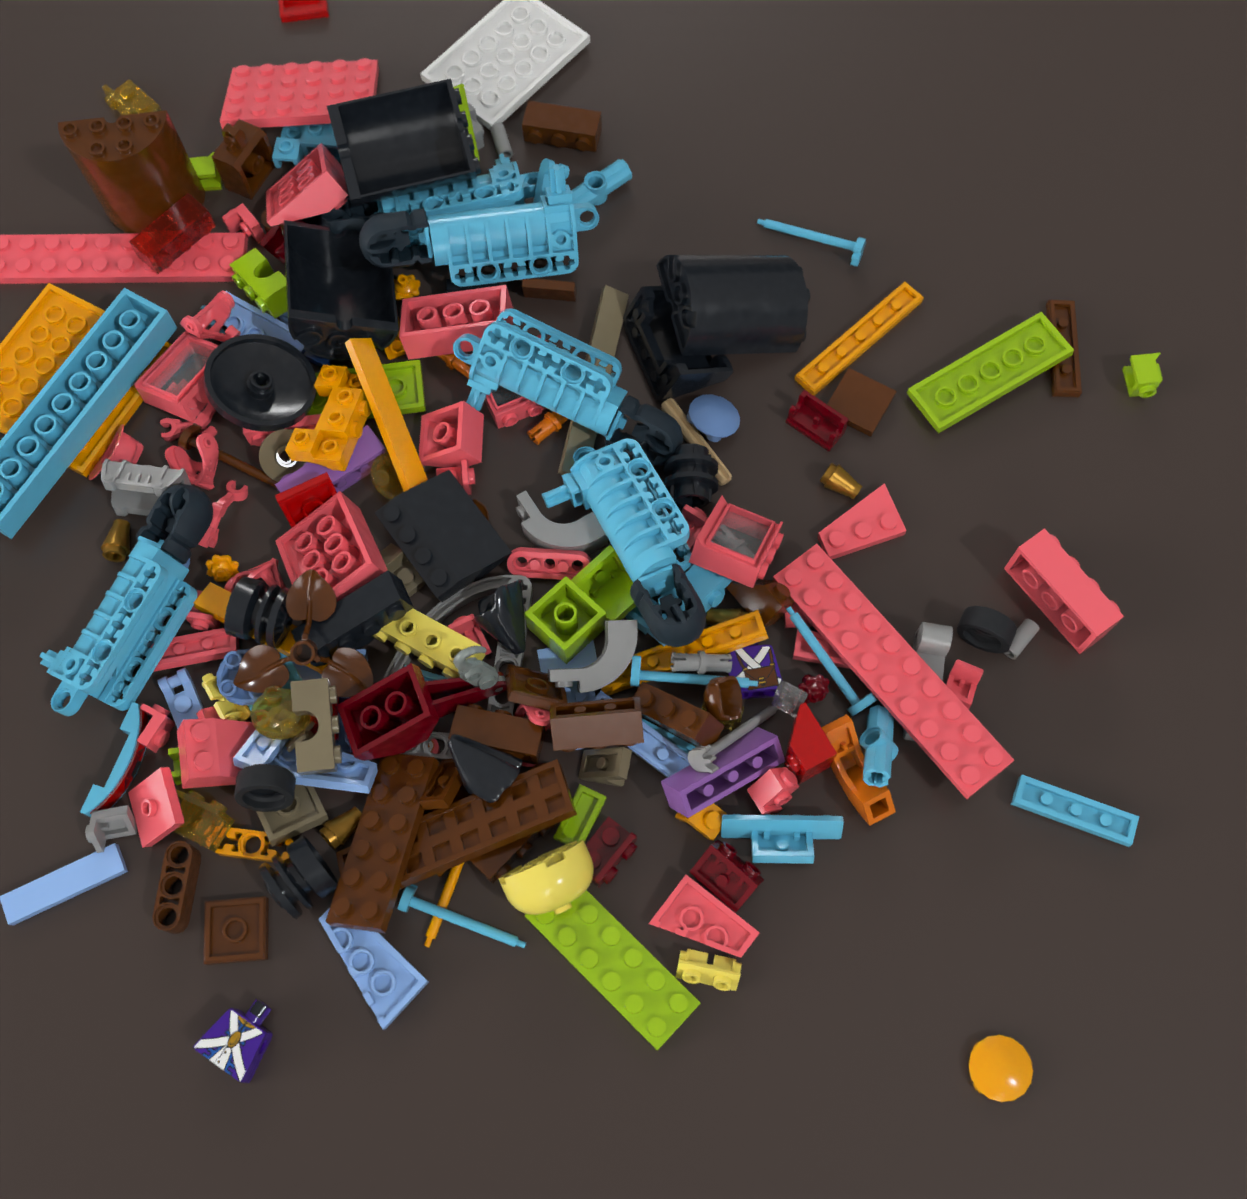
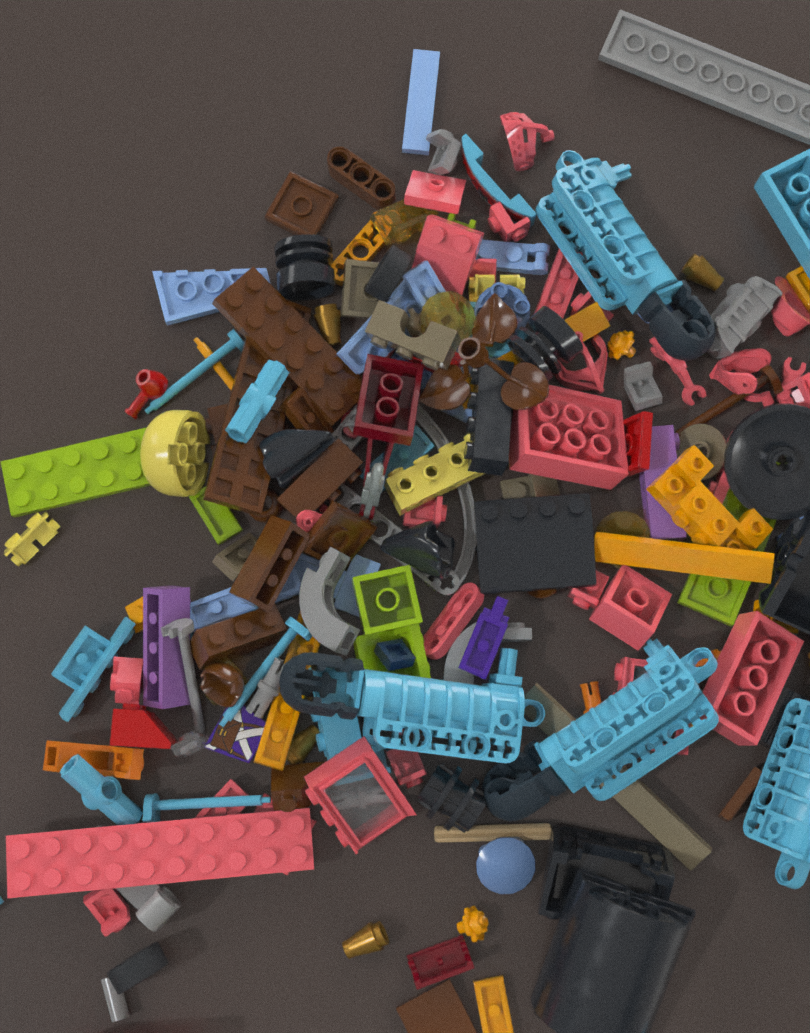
camera: 120 degrees right, 10 degrees up
(55, 763) = (522, 152): none -> coral helmet
(237, 1041) = (214, 166): torso -> none
(253, 531) = (641, 386): none -> light grey bracket
(456, 826) = (257, 401): none -> medium azure piece
(501, 947) = (152, 386): none -> red bar
(548, 519) = (485, 640): none -> dark purple hinge
(607, 584) = (394, 654): none -> dark blue plate
(608, 848) = (174, 518): dark red bracket -> none
(704, 918) = (71, 560): coral wing -> none
(727, 874) = (90, 600): dark red bracket -> none
(772, 414) = (473, 924): none -> light orange plant
(815, 687) = (192, 776): dark red plant -> none
(863, 526) = (311, 933): coral wing -> none

